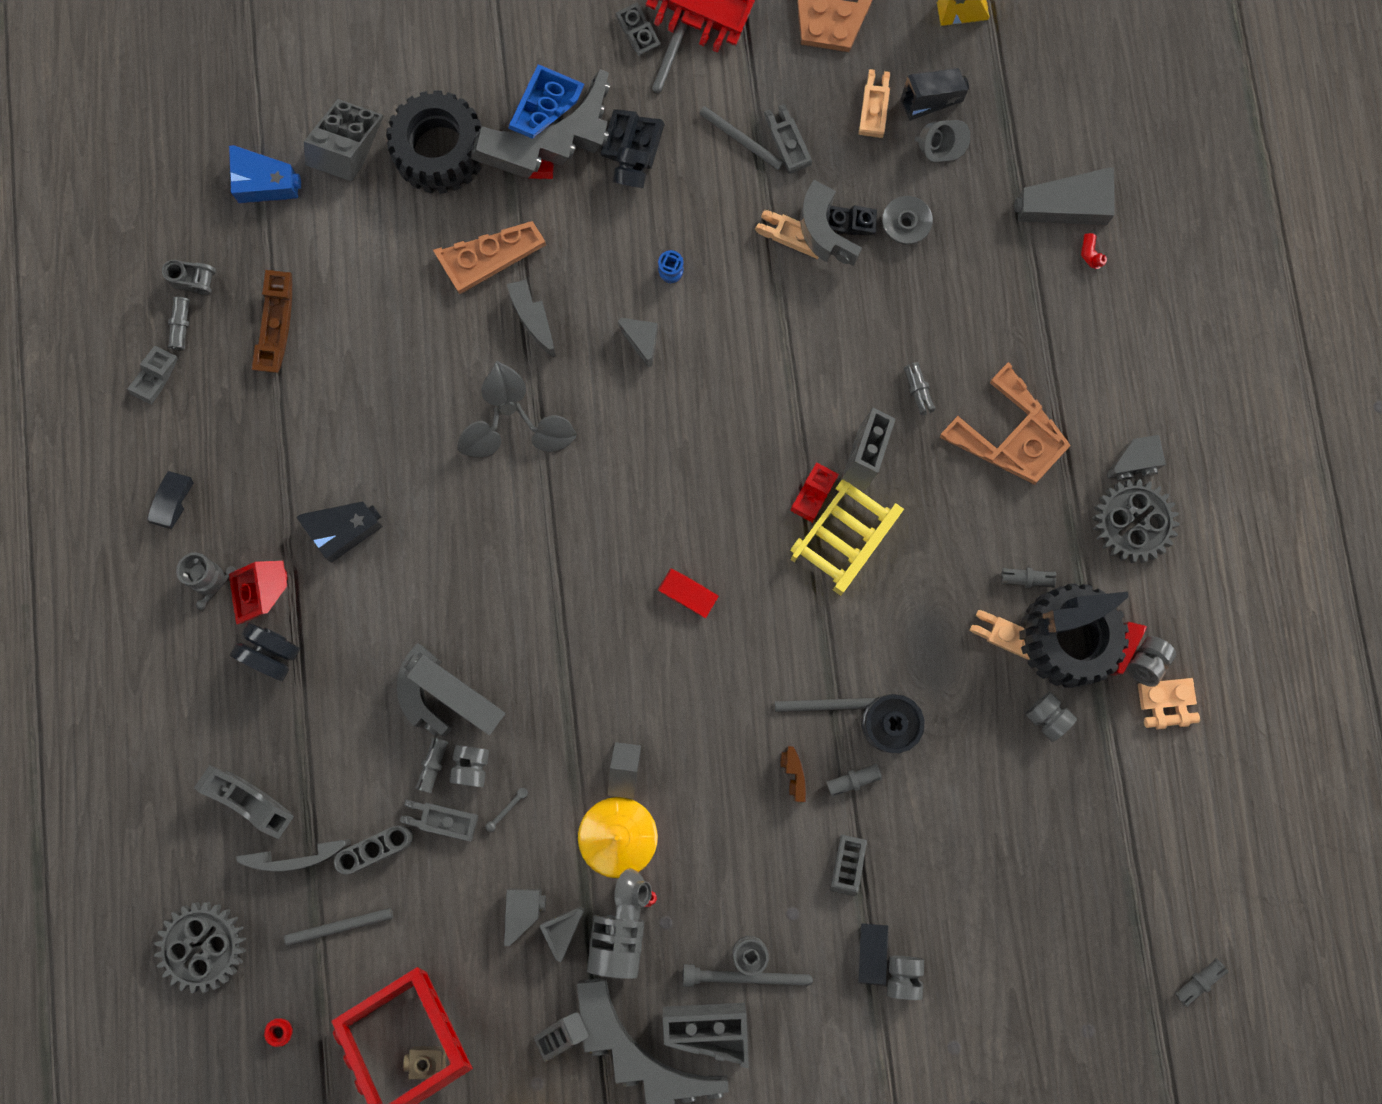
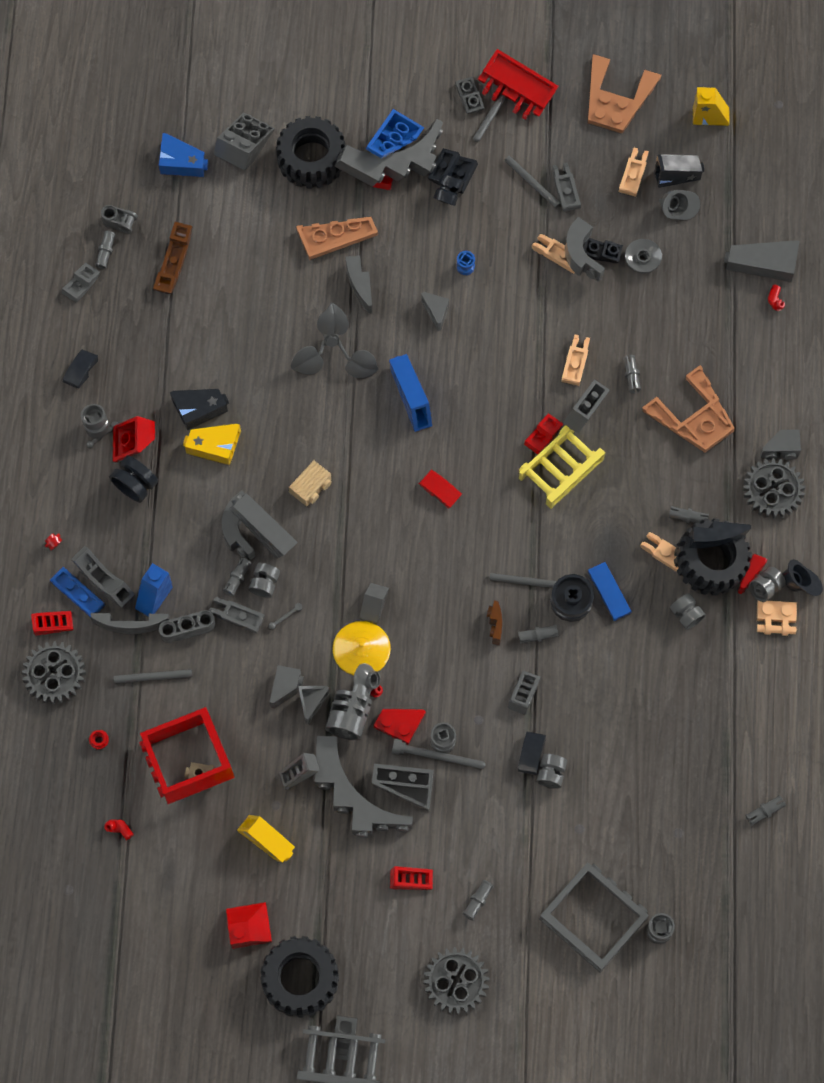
camera: 10 degrees right, 10 degrees down
(164, 880) = (36, 617): none -> red slope
(170, 755) = (53, 541): none -> red plate
(216, 822) = (77, 592): none -> blue tile
(318, 808) = (153, 590): none -> blue slope
(369, 577) = (213, 442): none -> yellow slope
(511, 614) = (310, 483): none -> tan brick
(626, 462) = (411, 392): none -> blue slope
(687, 938) = (400, 723): none -> red wing
(841, 383) = (575, 362): none -> light nougat hinge
(939, 702) = (609, 591): none -> blue tile
(1196, 645) = (802, 579): none -> black piece

